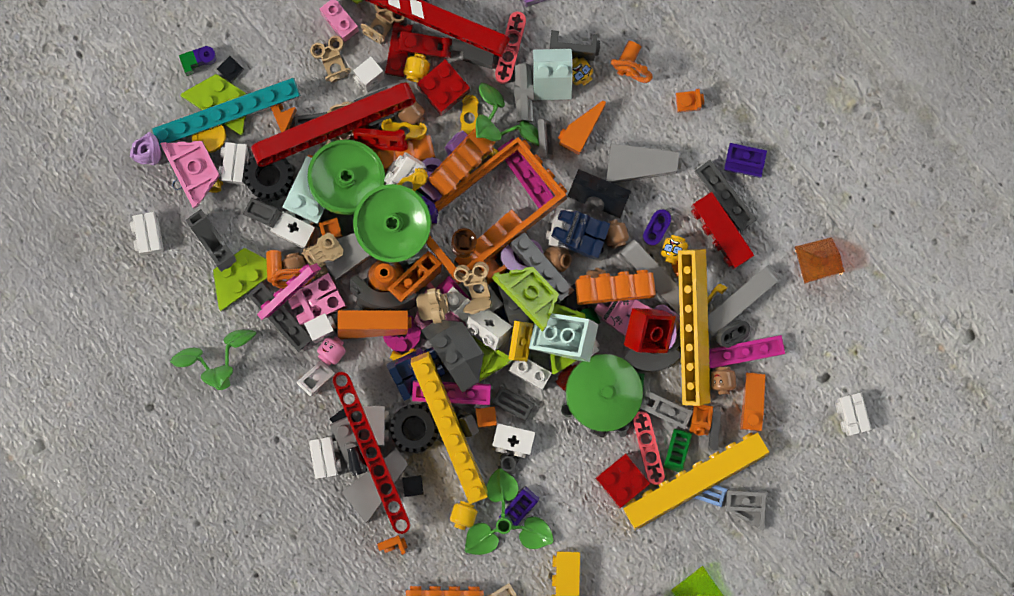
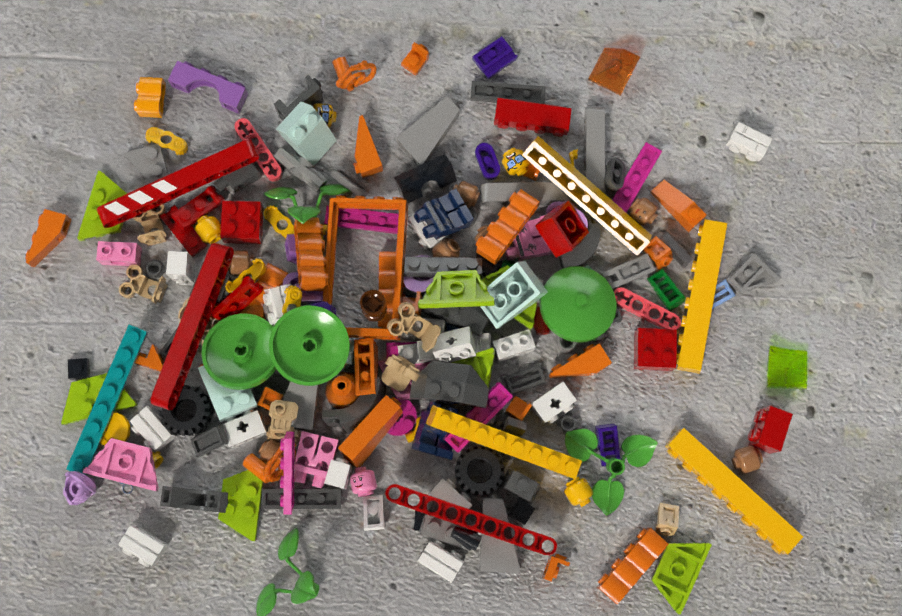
camera: 50 degrees left, 5 degrees down
(196, 58) = (46, 385): leg -> none
(349, 50) = (155, 263): none -> dark grey plate
(429, 469) = (520, 485): none -> dark grey torso
(520, 341) = (486, 329): yellow plate -> none
(565, 439) = (584, 365): none -> orange slope

